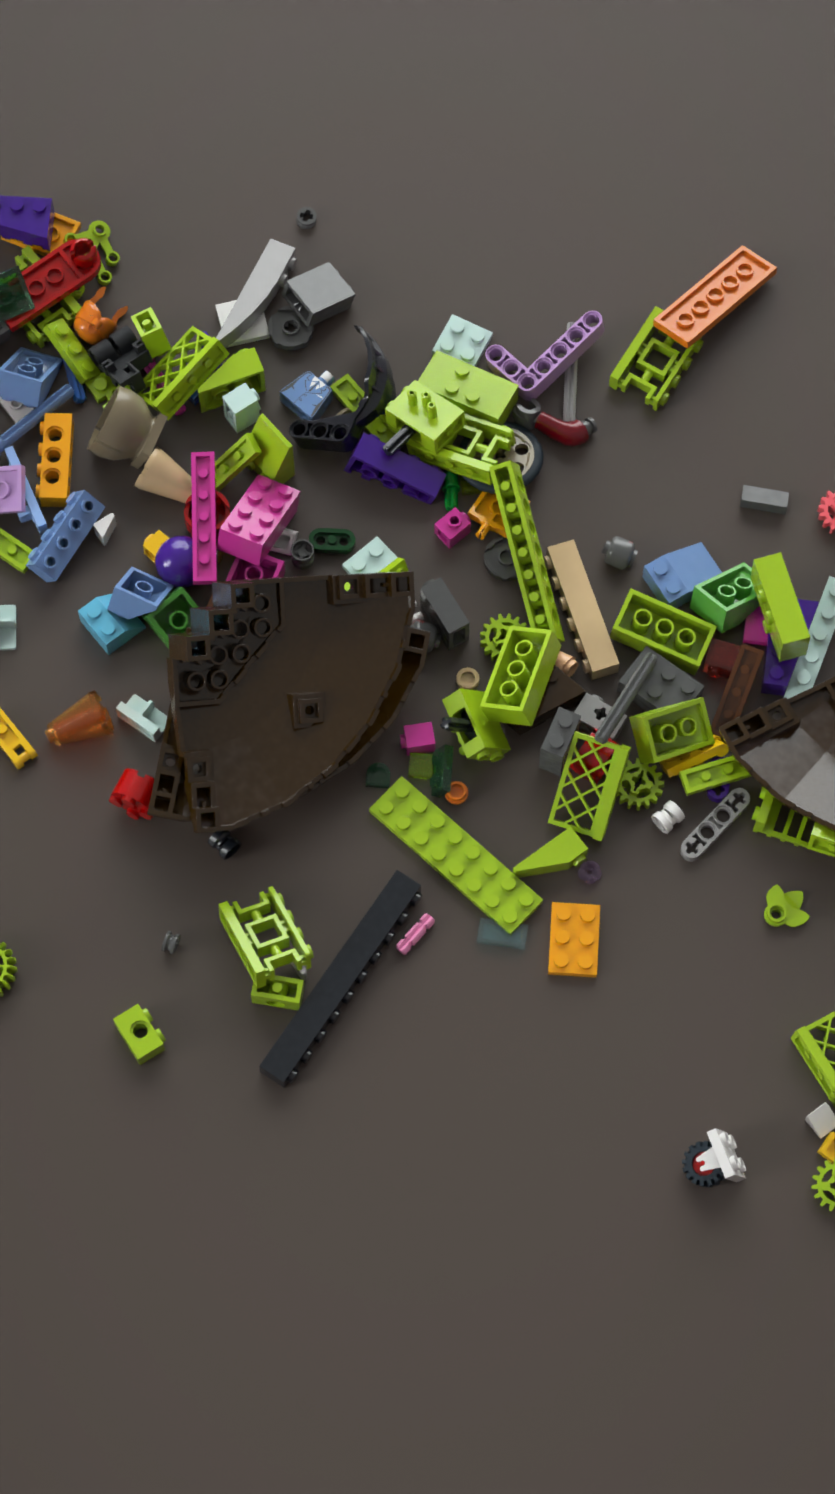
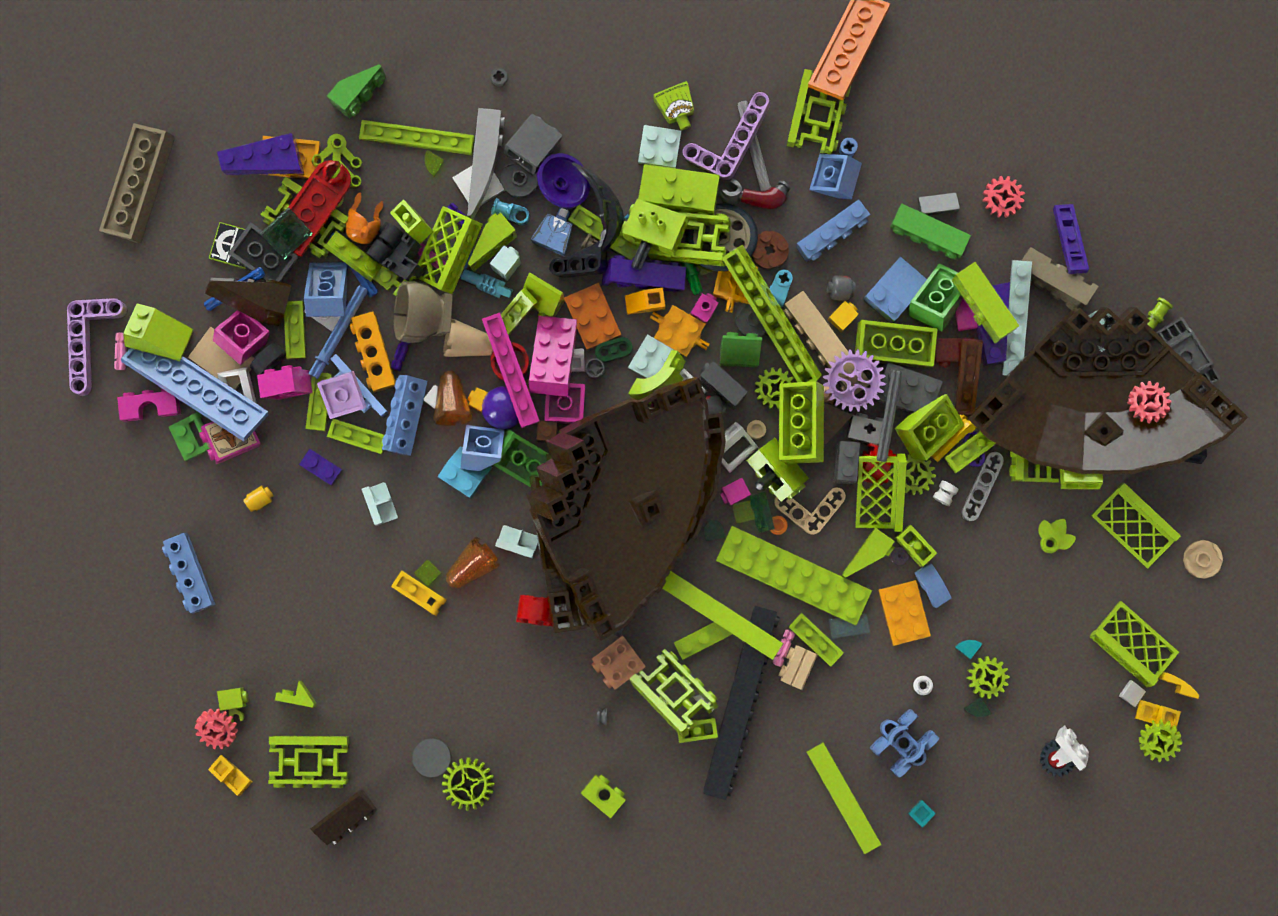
camera: 20 degrees left, 15 degrees up
(27, 719) = (427, 572): none -> clear neon green tile
(86, 472) = (400, 355): none -> dark purple axle
(123, 539) = (451, 401): none -> clear orange cone
(141, 180) = (354, 90): none -> bright green slope
(189, 252) = (416, 137): none -> lime tile
(199, 284) = (433, 162): none -> clear neon green tile
(210, 885) = (617, 663): none -> nougat brick
(211, 426) = (487, 284): none -> medium azure hinge
(268, 359) = (510, 211): none -> medium azure connector
(320, 498) = (593, 316): none -> orange plate
(323, 893) = (700, 639): none -> lime plate
(337, 342) = (573, 185): none -> dark purple dish
(350, 865) = (722, 615): none -> lime tile
(388, 498) = (645, 301): none -> light orange slope
(416, 543) = (679, 330): none -> light orange plate
(424, 959) = (798, 667): none -> tan brick
(428, 678) = (732, 435): none -> white tile
(428, 1132) = (843, 798): none -> lime tile
(457, 935) = (816, 639): none -> lime plate
(477, 579) = (740, 350): none -> bright green slope
(495, 302) = (675, 104): none -> lime torso
(497, 795) = (807, 516): none -> tan beam
(504, 1075) = (902, 765): none -> medium blue piece
(517, 1180) = (921, 813): none -> teal tile
(548, 533) = (779, 289): none -> medium azure piece
(551, 501) = (779, 245): none -> copper plate
(568, 1022) = (929, 685): none -> white plate
(612, 584) = (843, 316): none -> yellow brick
(612, 862) = (915, 546): none -> lime brick
(613, 634) = (847, 396): none -> lavender gear
(619, 916) = (933, 585): none -> medium blue slope
(627, 1078) = (978, 708): none -> clear green tile
(630, 488) = (833, 230): none -> medium blue brick
(638, 1003) = (968, 647): none -> teal tile
(654, 431) = (835, 175): none -> medium blue slope
(660, 1042) = (993, 688): none -> lime gear
(683, 409) = (851, 143): none -> medium blue bush
(743, 522) = (930, 231): none -> bright green brick

